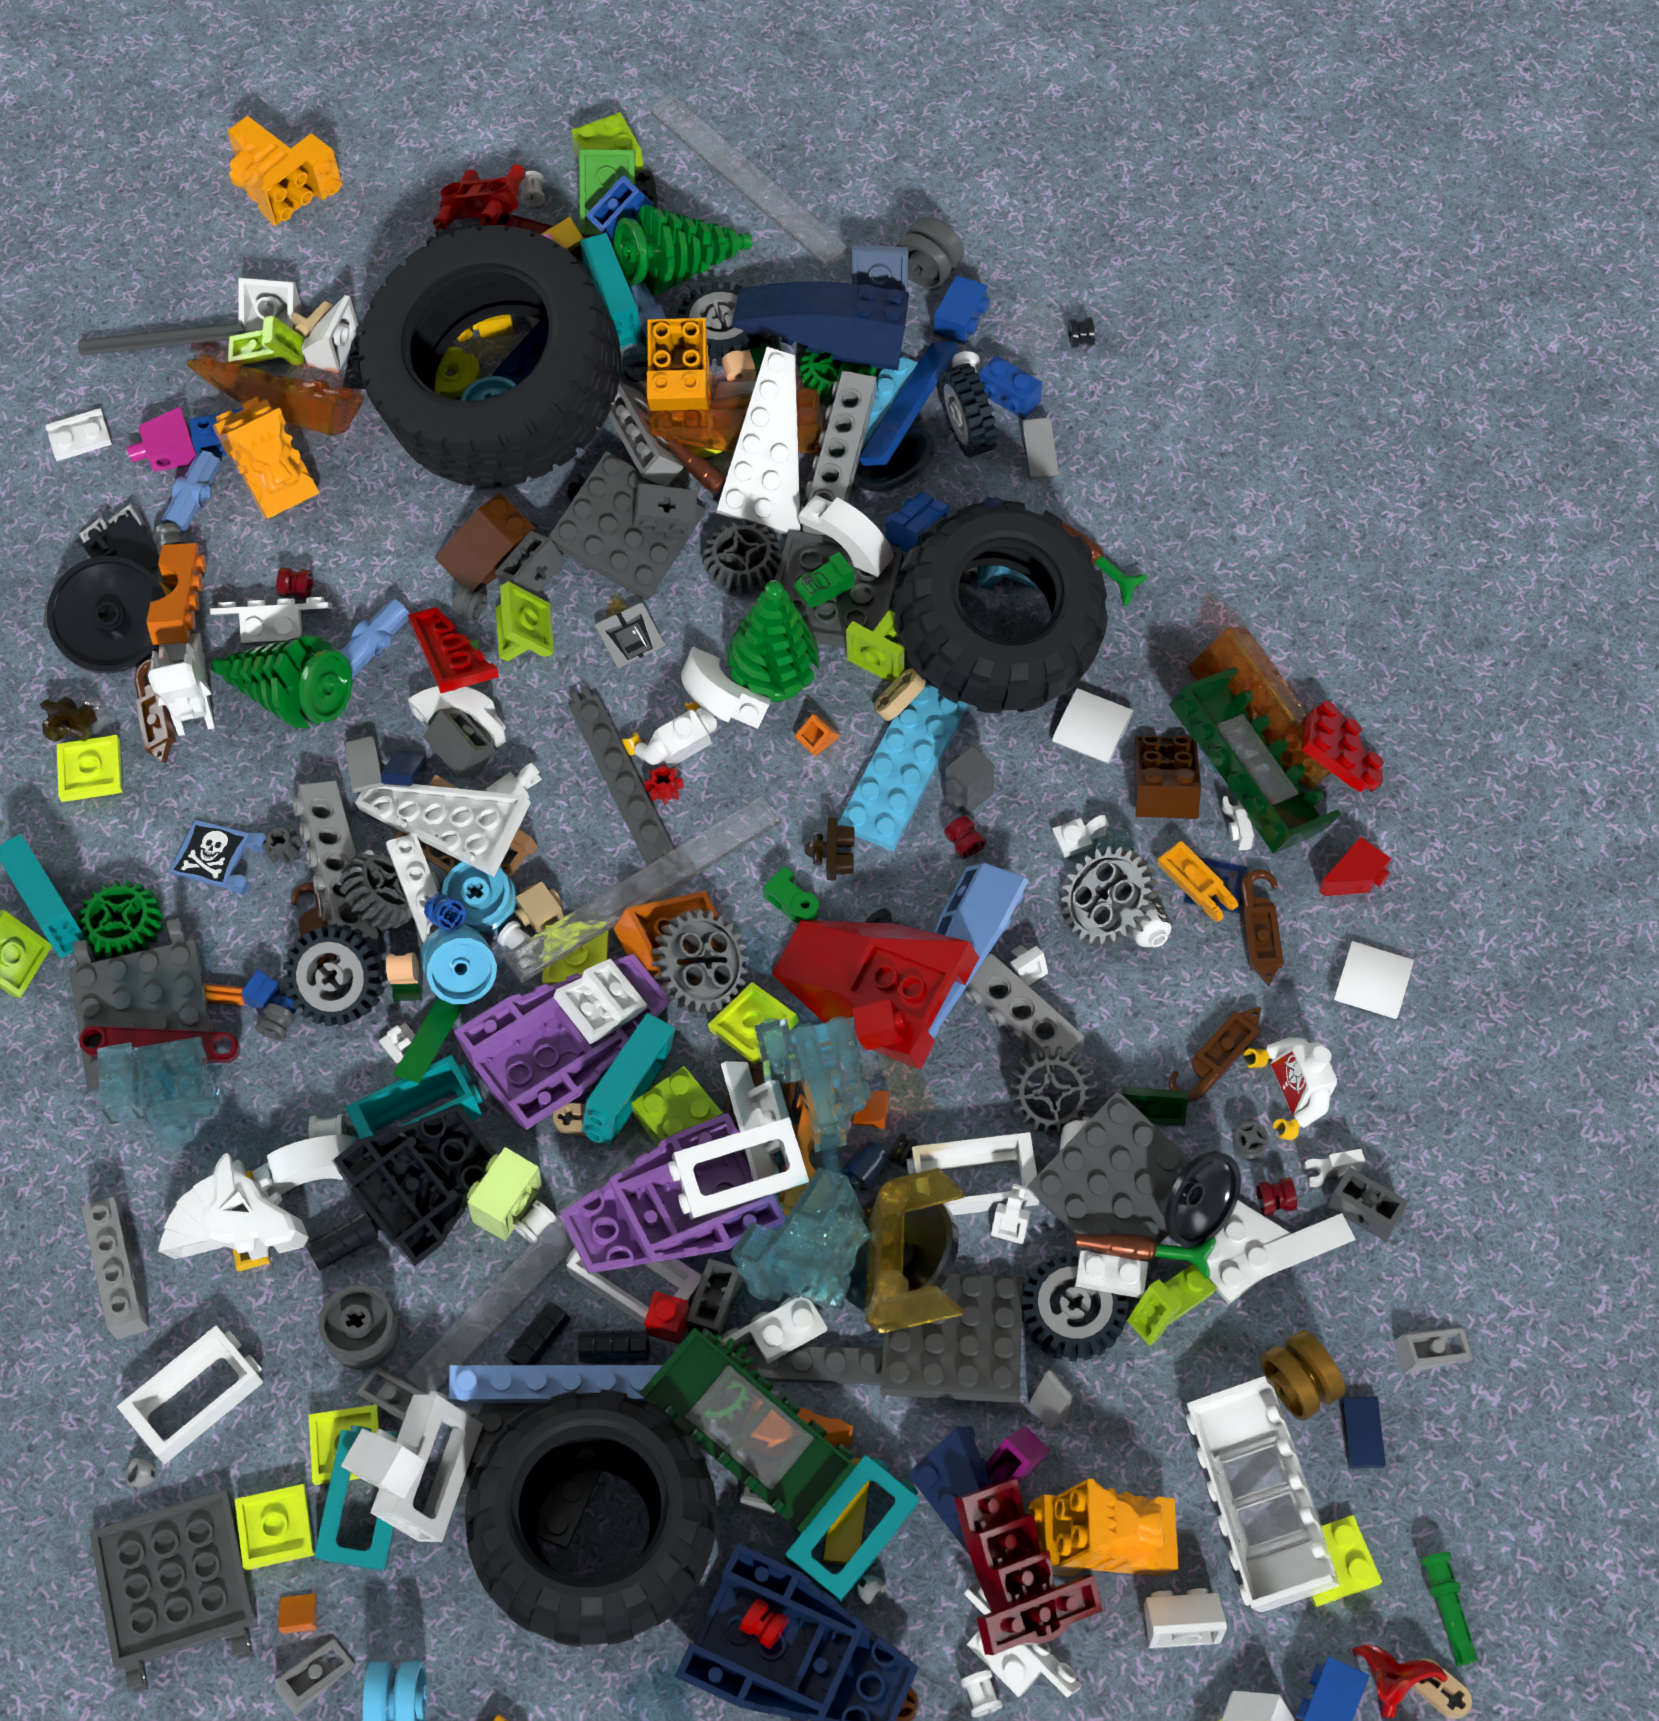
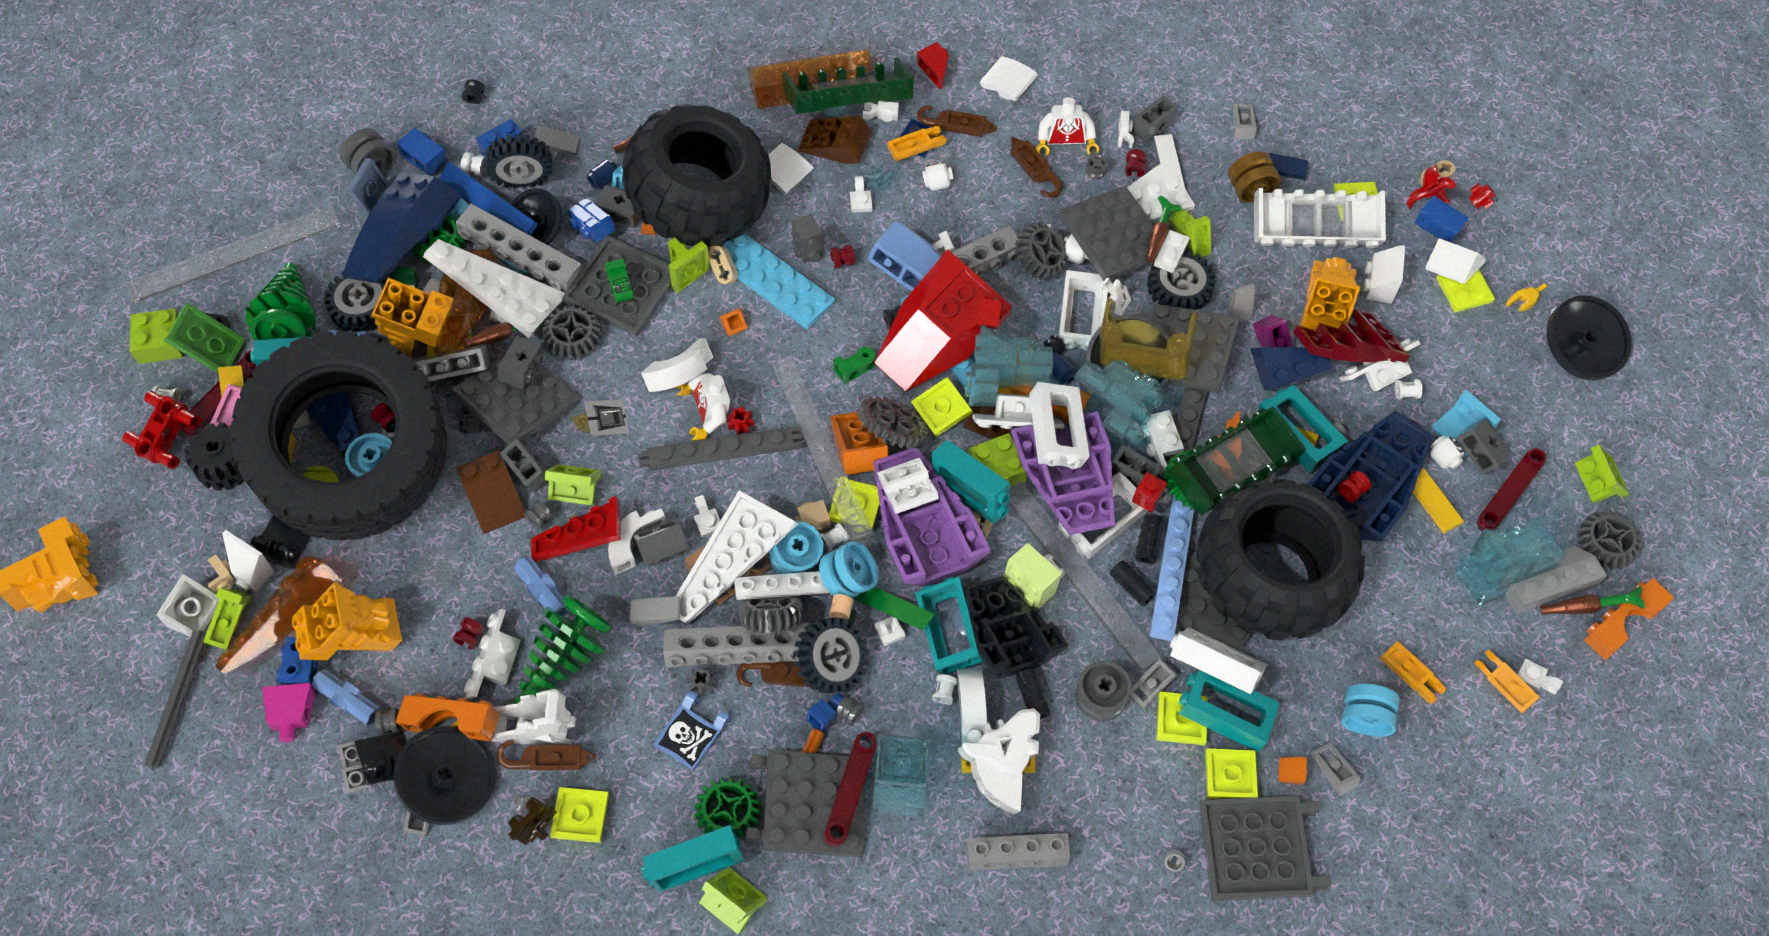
camera: 80 degrees left, 0 degrees up
(78, 434) = (243, 780): white plate -> none
(176, 1376) = (1140, 804): white piece -> none
(384, 1461) = (1224, 672): white brick -> none
(403, 768) = (668, 582): dark blue tile -> none
(439, 907) = (816, 561): blue wheel -> none
(619, 202) = (231, 331): blue brick -> none
(773, 647) = (665, 319): green plant -> none
(836, 837) = (824, 333): dark brown hips -> none
(851, 530) = (587, 251): white arch -> none
(1109, 897) = (935, 179): dark grey gear -> none
(1159, 1105) = (1062, 199): dark green plate -> none
(1202, 1199) = (1138, 190): black dish -> none
(1337, 747) = (851, 43): red plate -> none
(1446, 1591) = (1385, 154): green pin -> none

